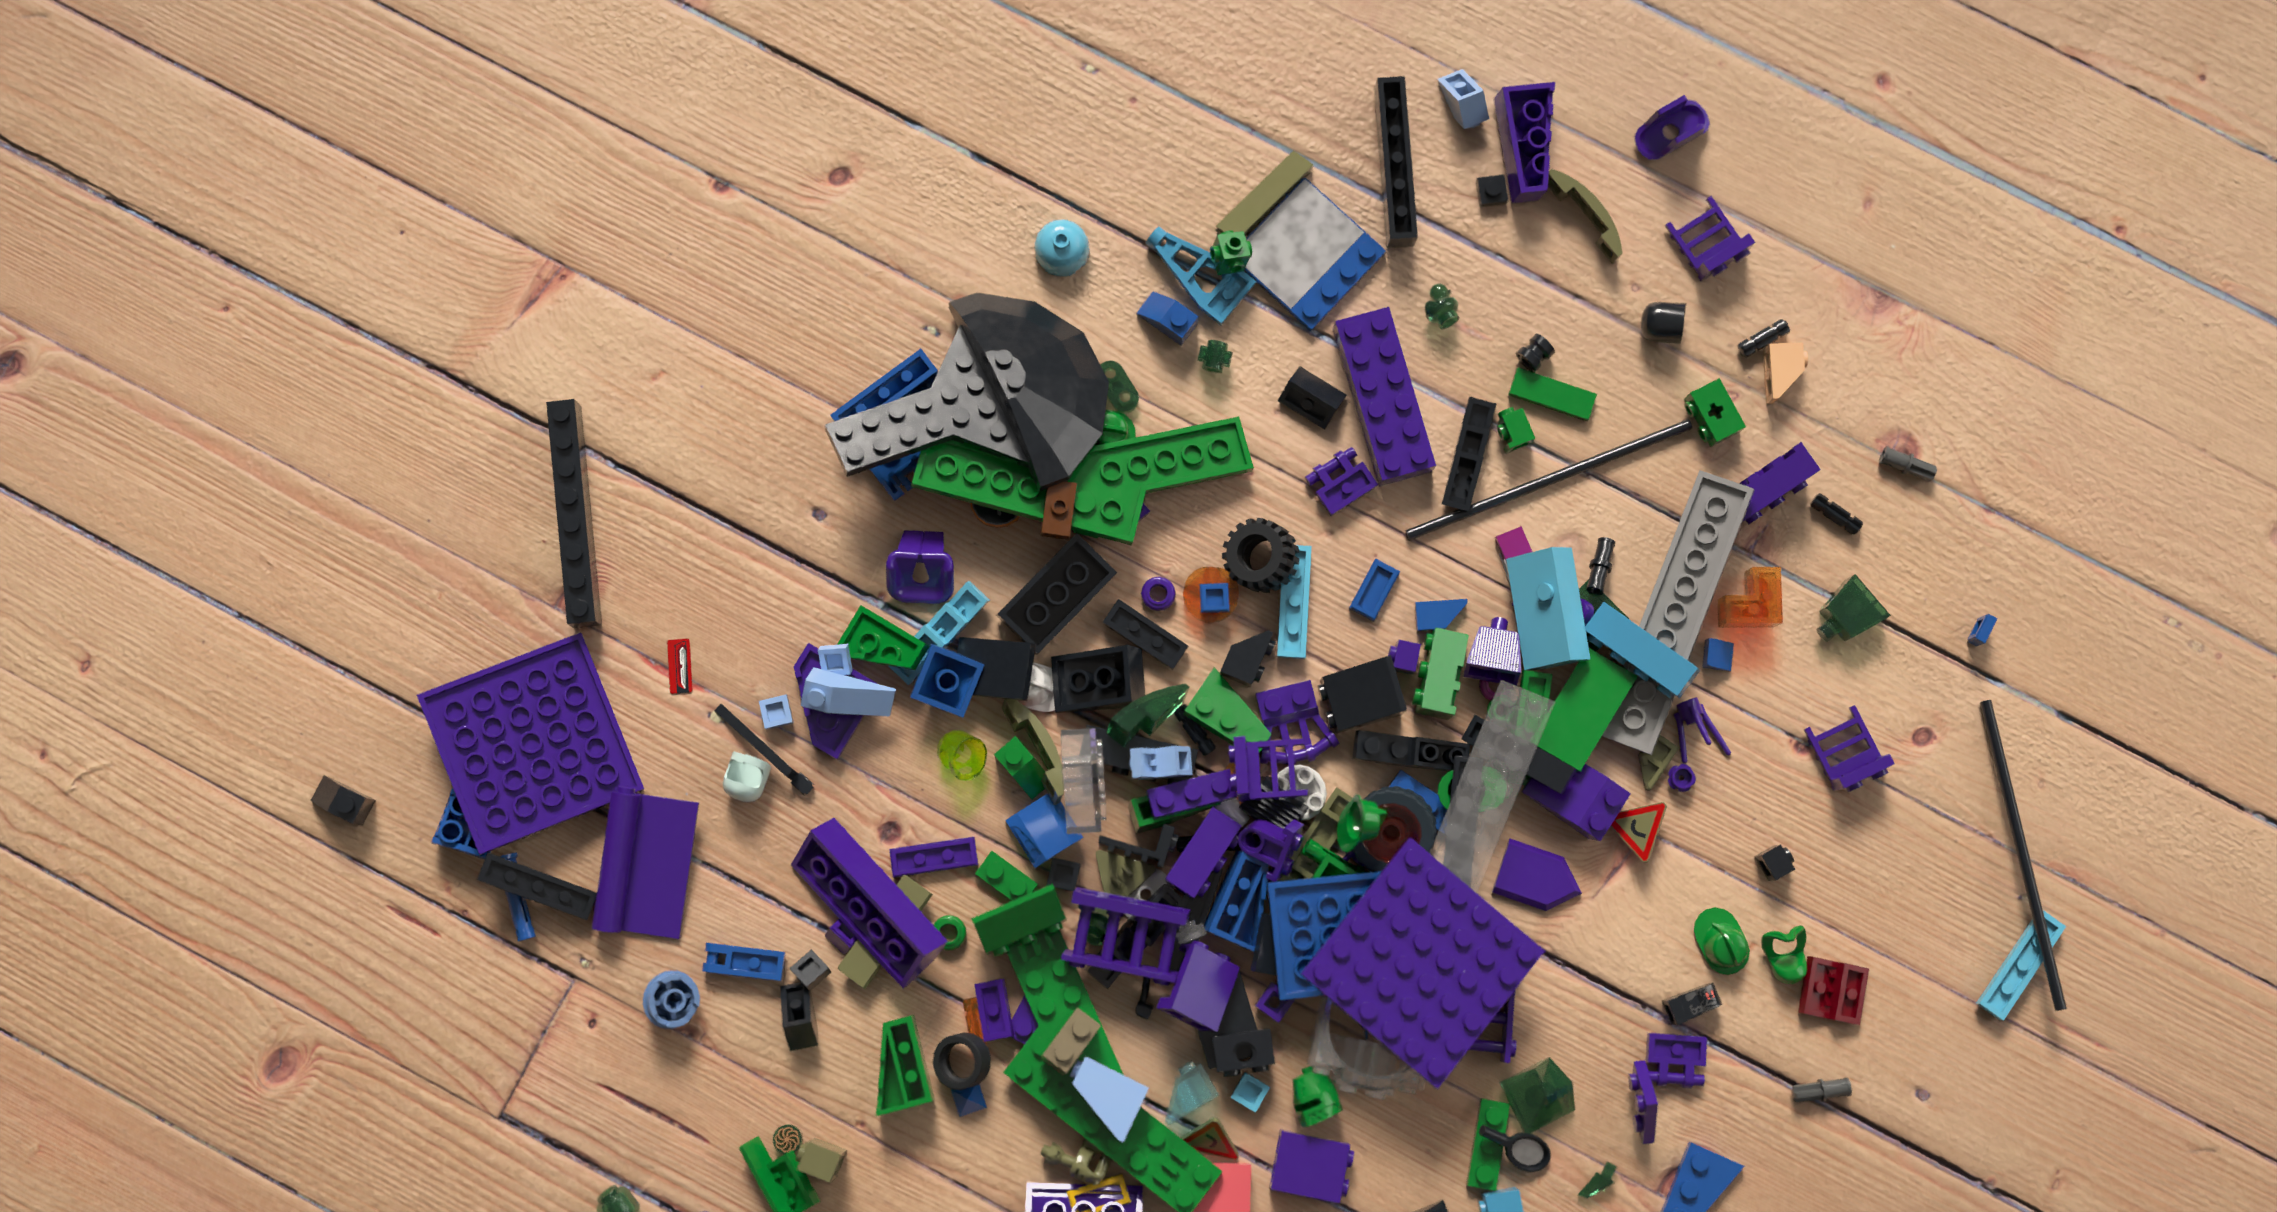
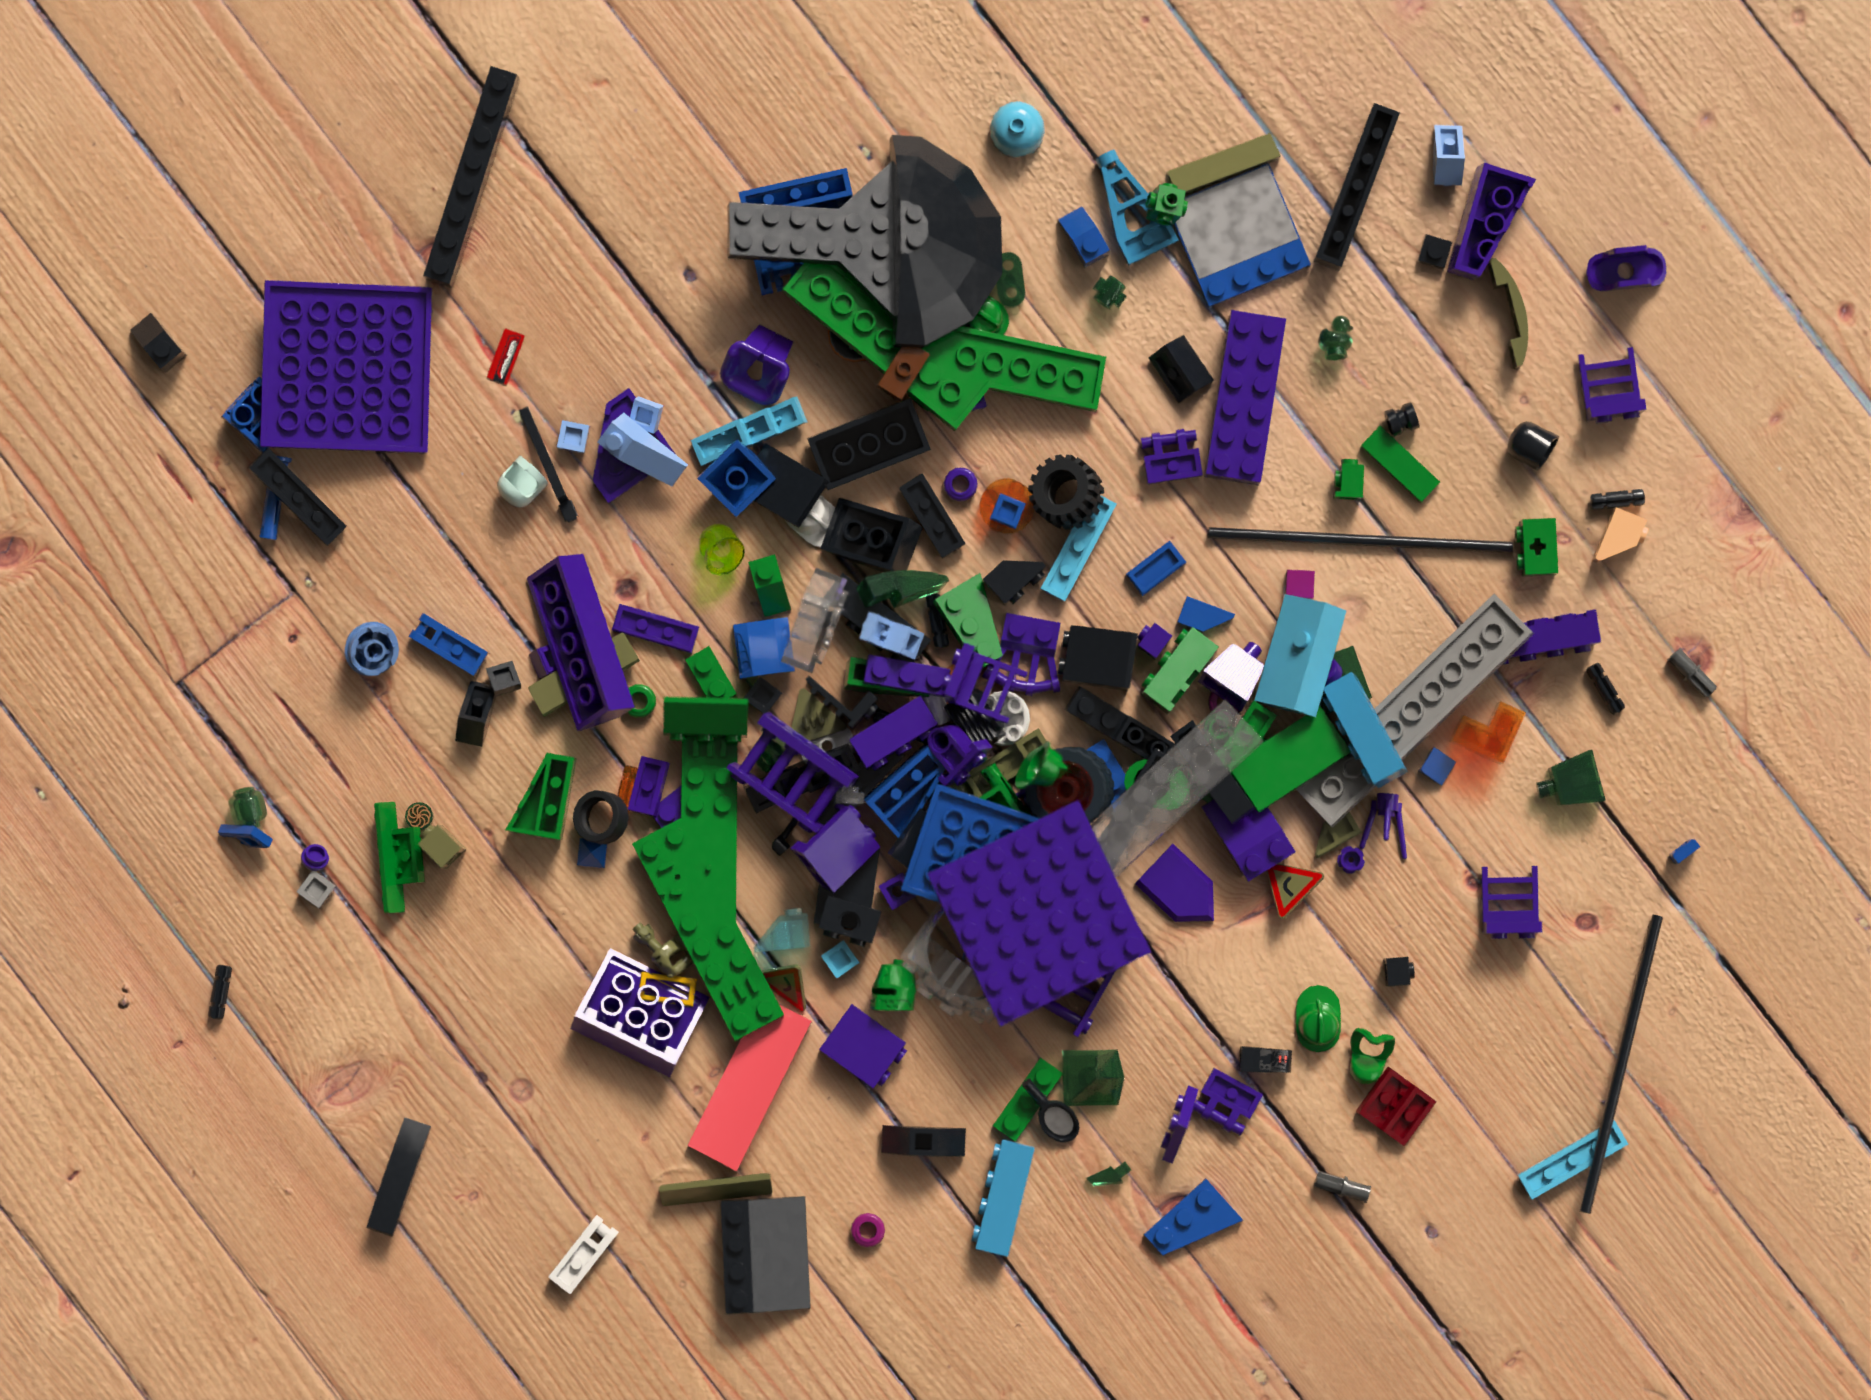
camera: 30 degrees right, 5 degrees up
(645, 864) = (399, 519): dark purple door -> none
(881, 642) = (694, 416): green wing -> none
(1022, 717) = (788, 540): olive slope -> none
(1070, 1041) = (702, 842): dark tan brick -> none
(1109, 1094) = (716, 904): light blue slope -> none
(1468, 454) = (1298, 484): black slope -> none
(1600, 566) = (1368, 638): black pin -> none

